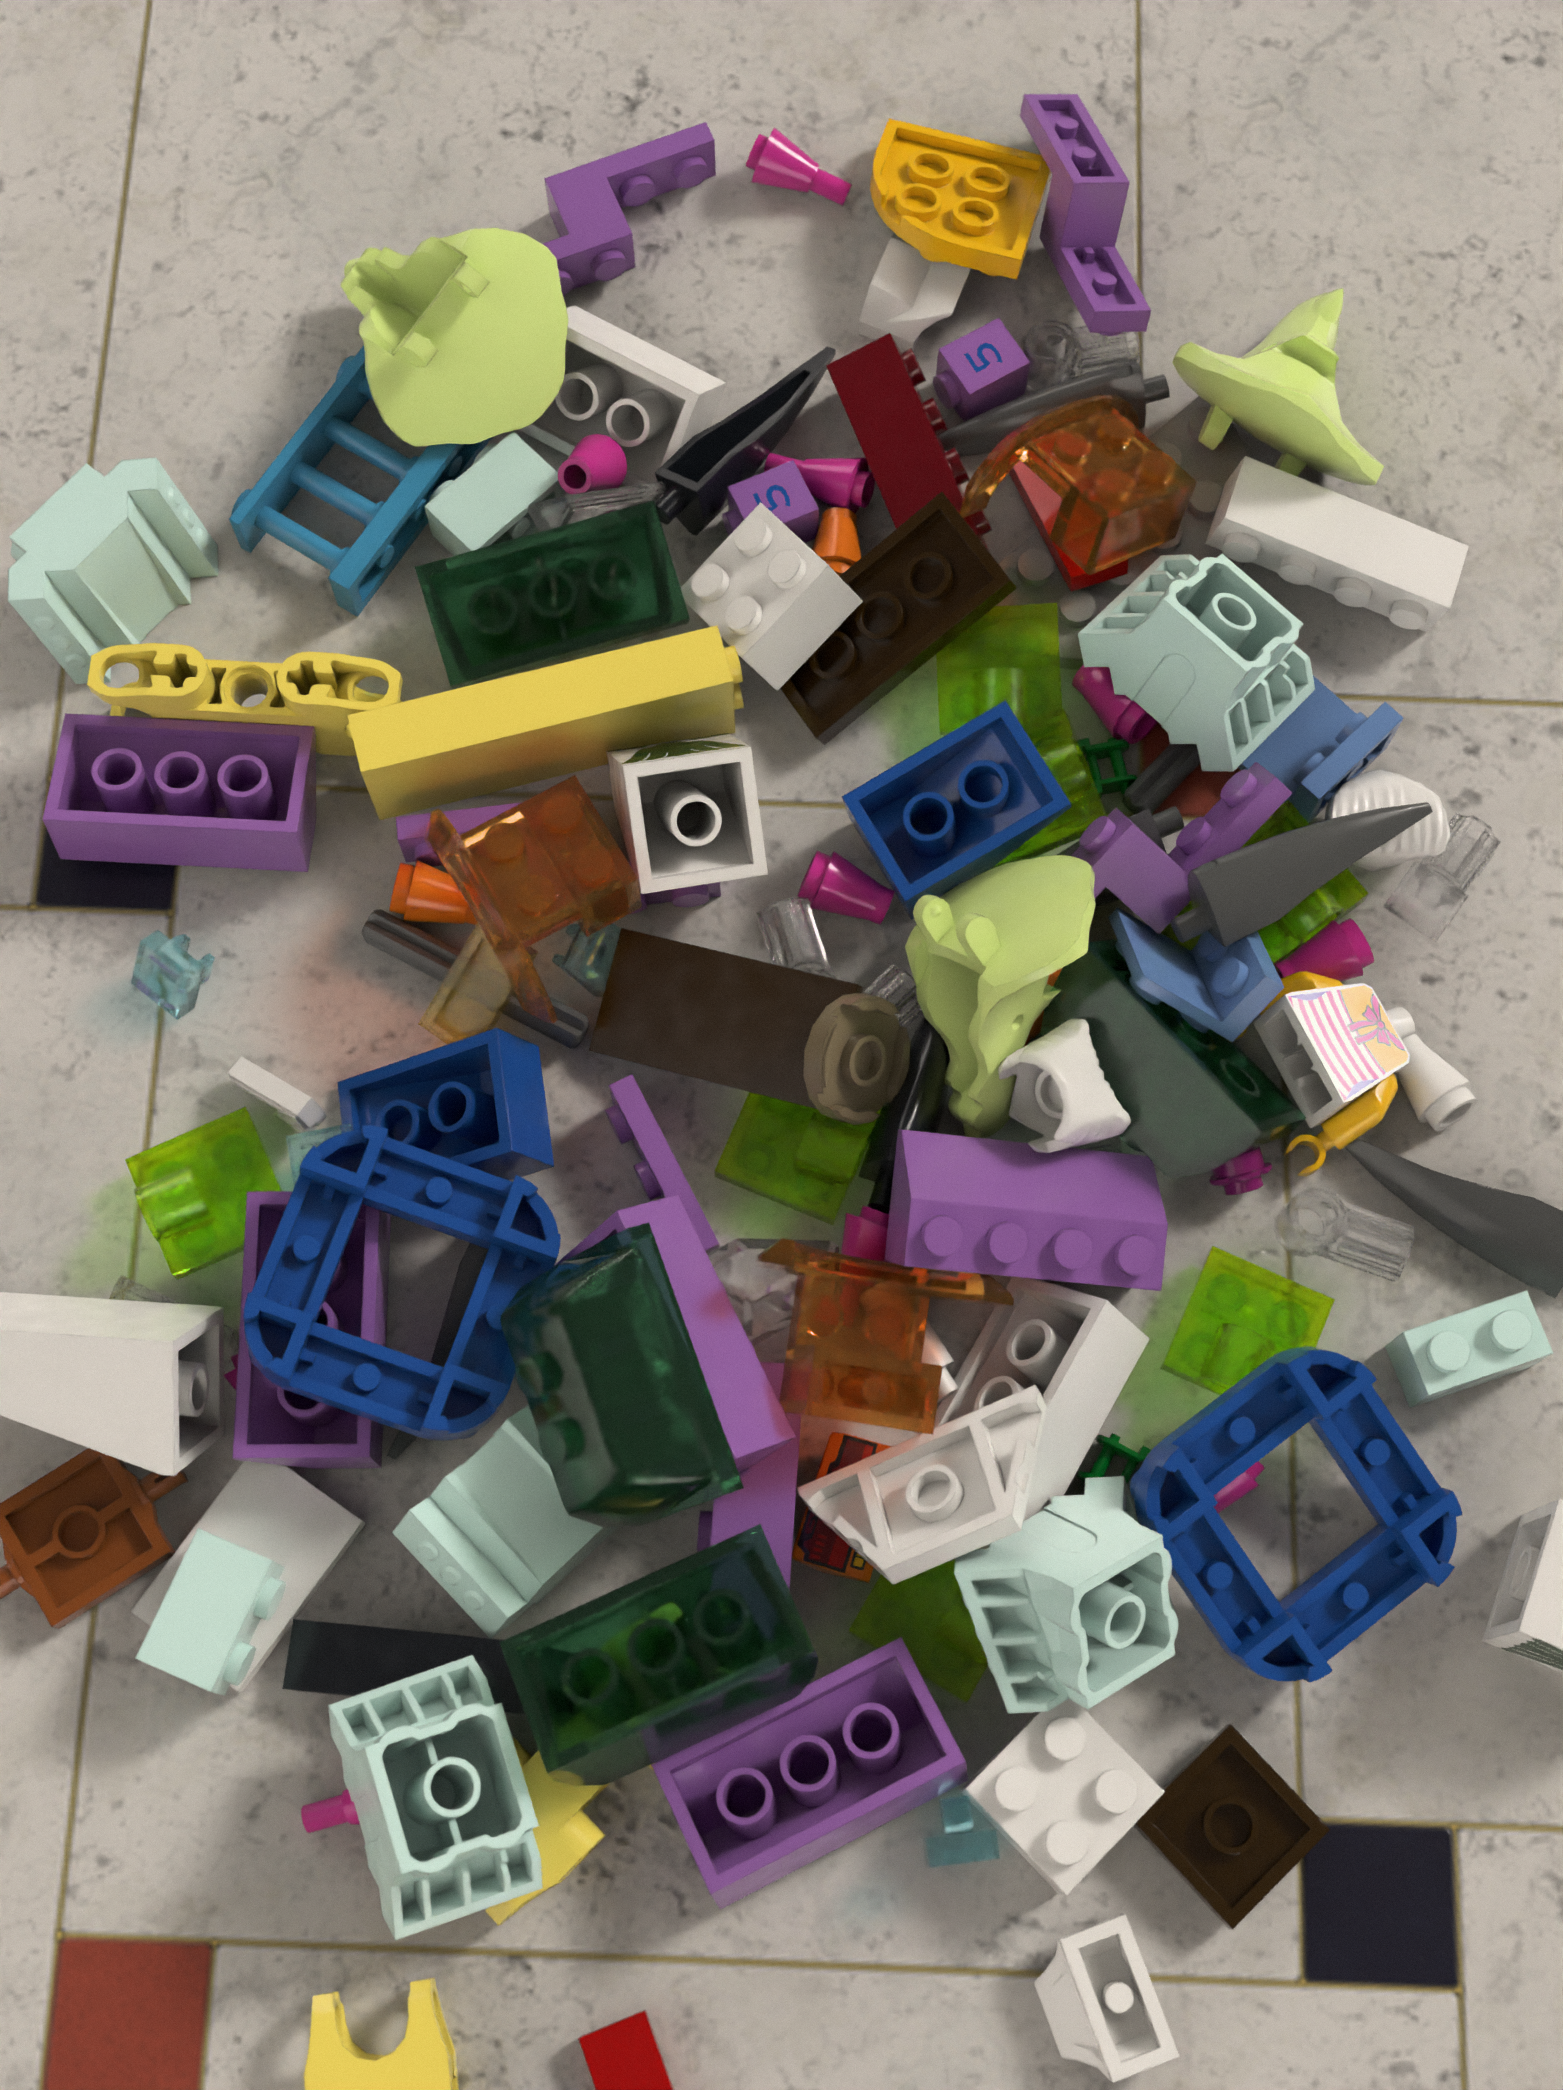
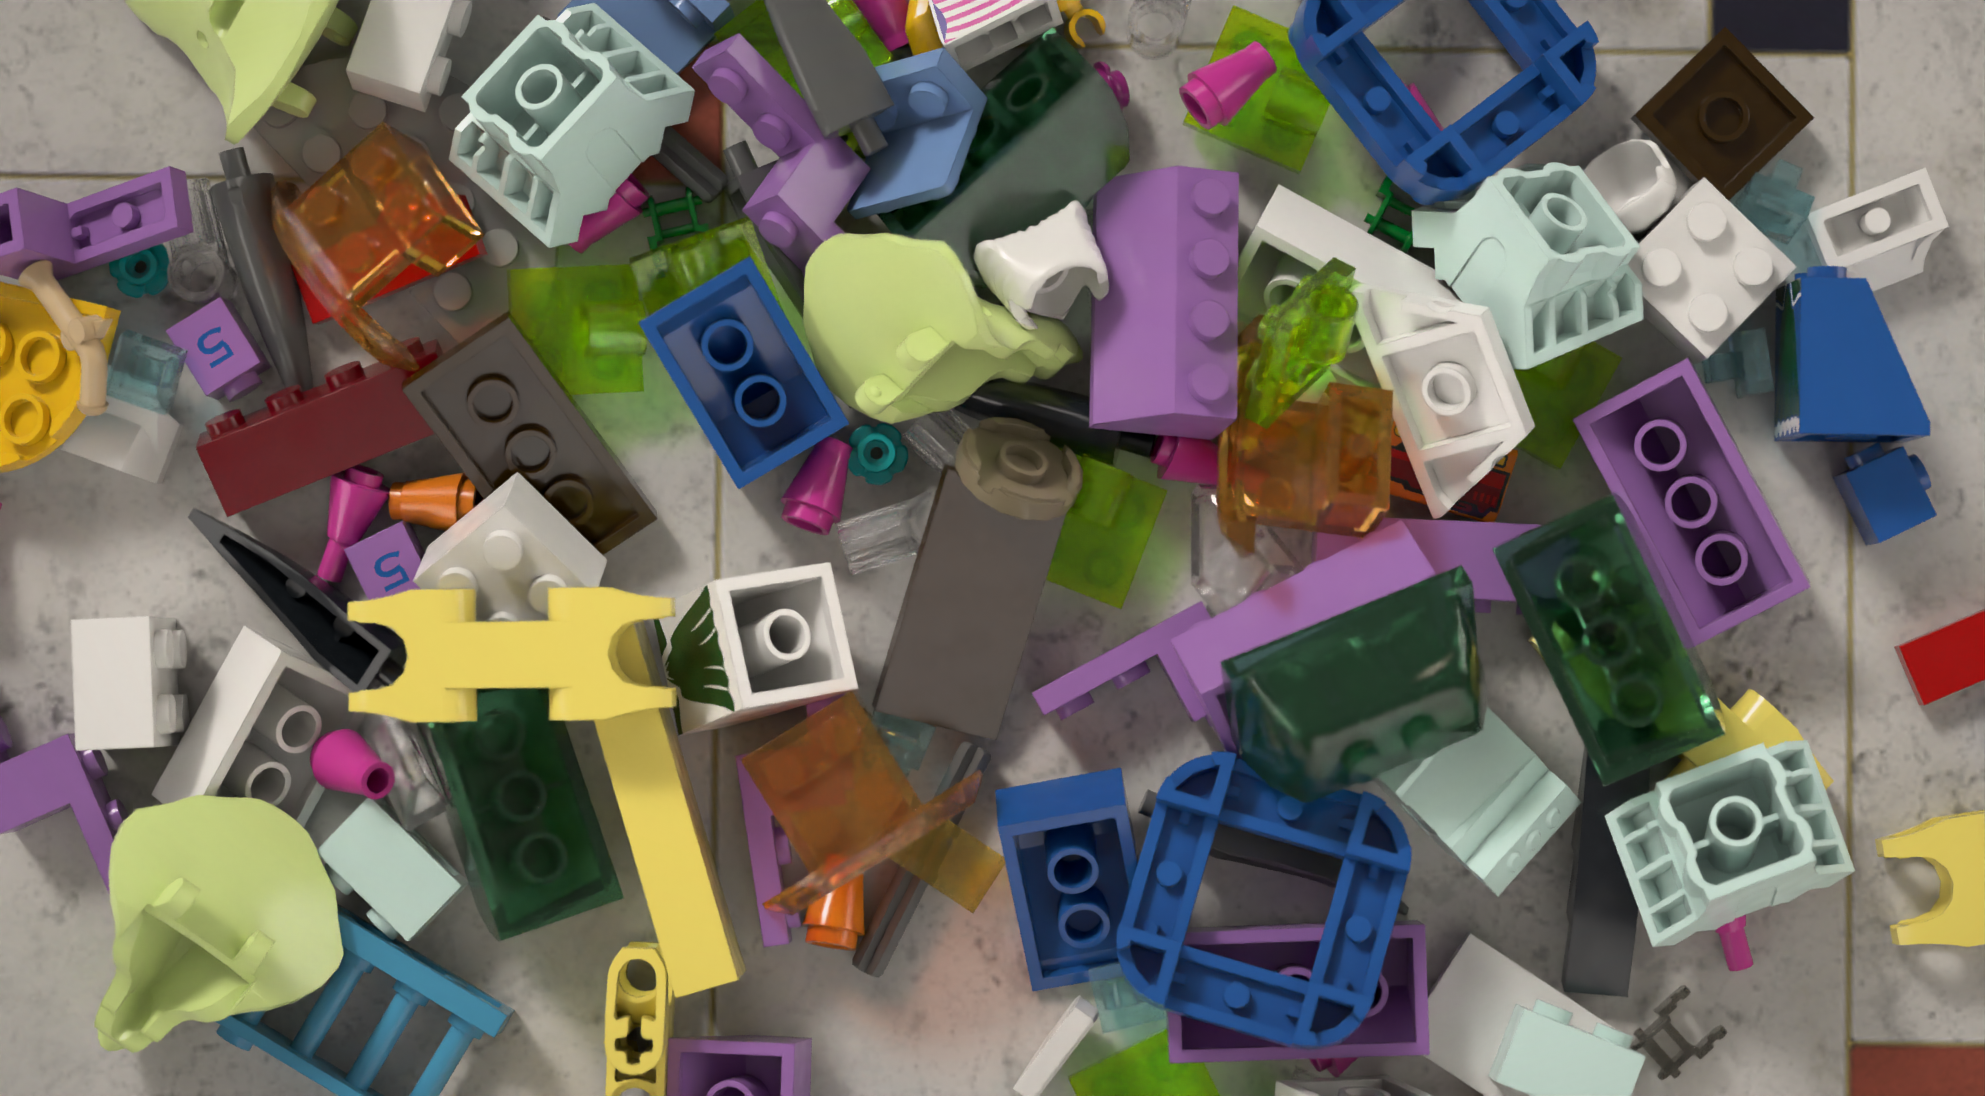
camera: 90 degrees left, 15 degrees up
(206, 1733) = (1645, 1038): none -> clear smoke piece
(676, 278) = (128, 682): none -> white brick
(684, 617) = (457, 655): none -> light yellow piece
(817, 2000) = (1885, 492): none -> blue brick
(876, 961) = (894, 453): none -> teal plate
(956, 1944) = (1839, 365): none -> blue slope
(960, 299) = (145, 372): none -> clear light blue tile
(984, 1337) = (1301, 341): none -> clear neon green plate
(995, 236) = (77, 334): none -> tan piece
(1056, 299) = (150, 281): none -> teal plate
(1135, 1880) = (1775, 203): none -> clear light blue tile
(1153, 1718) = (1634, 182): none -> white hair
(1252, 1283) = (1224, 87): none -> dark pink cone

